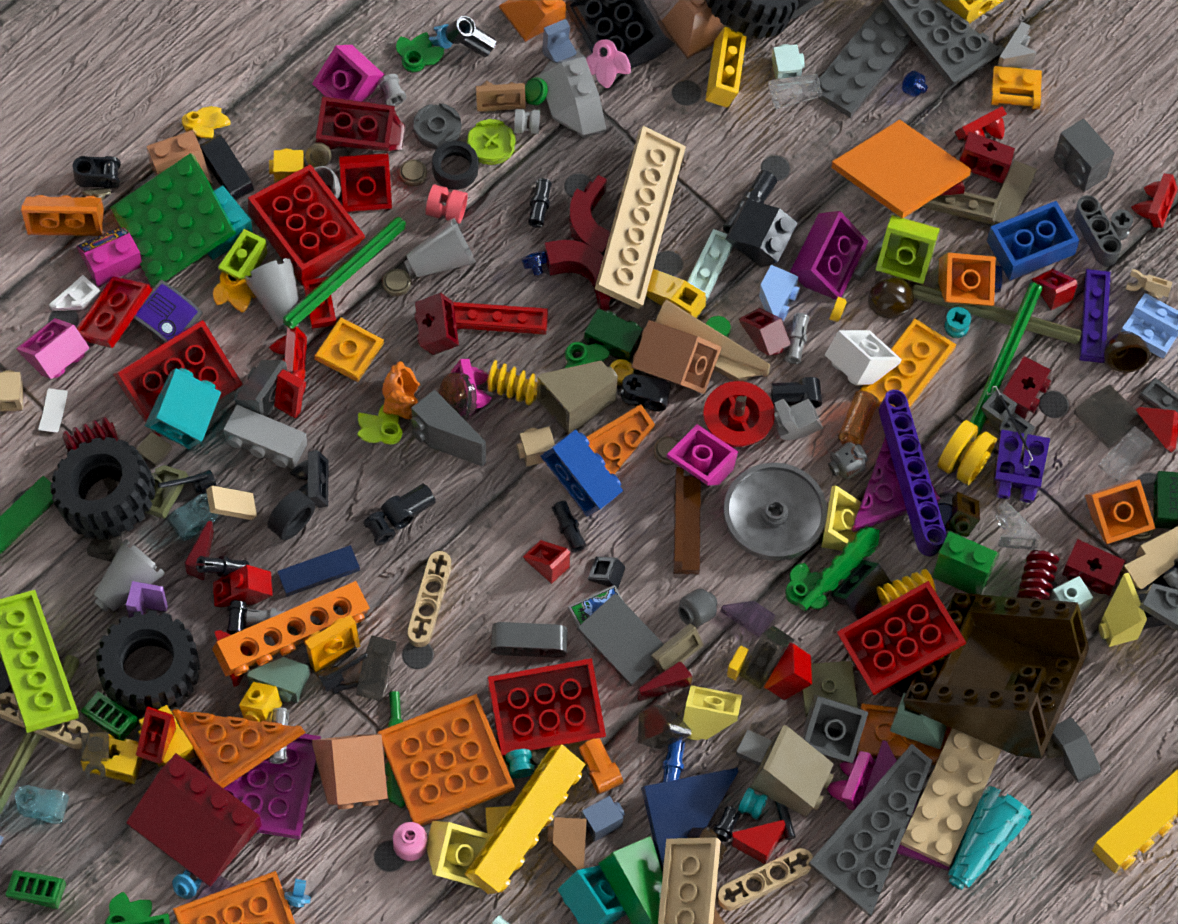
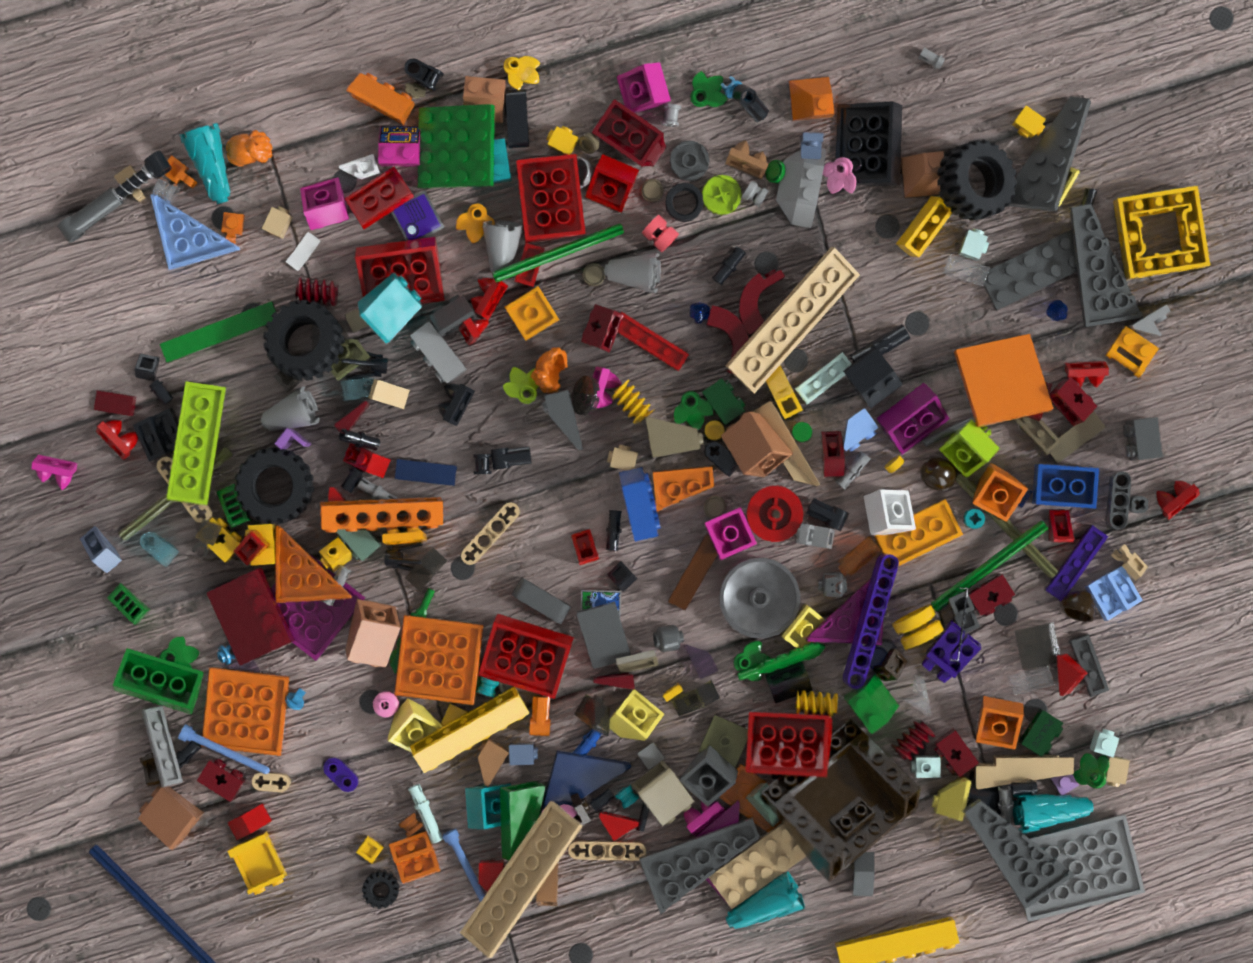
camera: 35 degrees right, 25 degrees up
(244, 255) = (490, 204): lime slope -> none
(291, 515) = (424, 426): black tyre -> none
(791, 673) = (704, 721): red slope -> none

